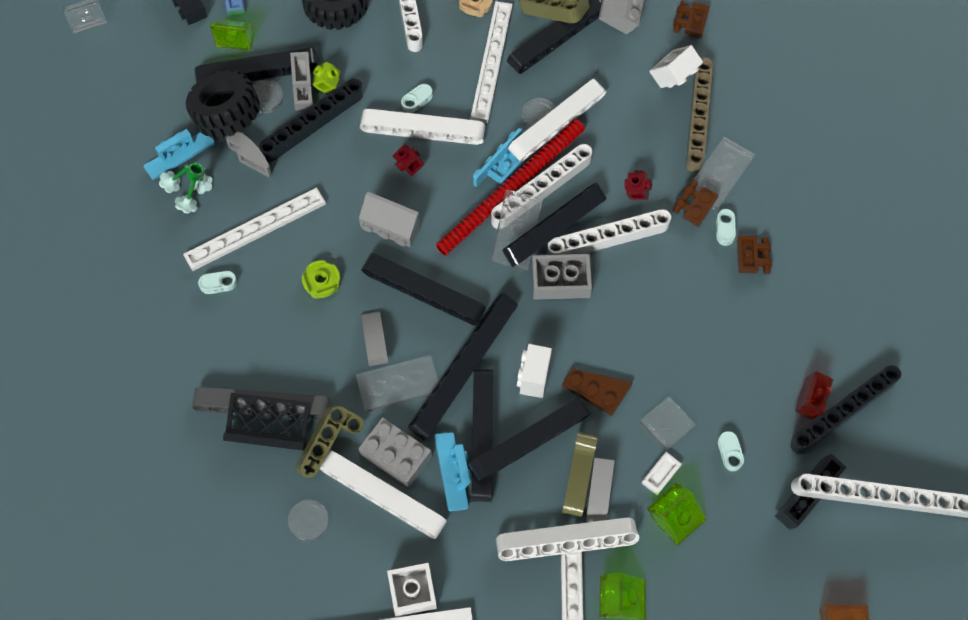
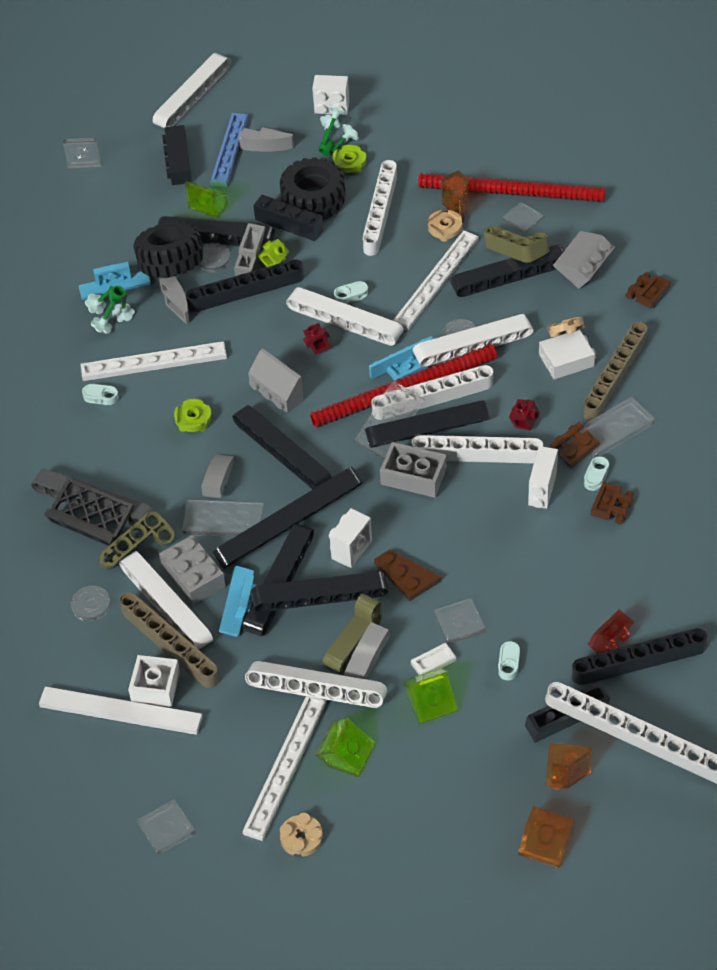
camera: 25 degrees right, 15 degrees down
(322, 33) = (288, 217): none -> black brick
(397, 529) = (160, 631): none -> dark tan beam
(637, 80) = (568, 326): none -> tan plate
(647, 108) = (567, 354): none -> white brick
(676, 67) = (608, 323): white brick -> none
(685, 249) = (543, 477): none -> white brick
(833, 550) = (567, 765): none -> clear orange slope

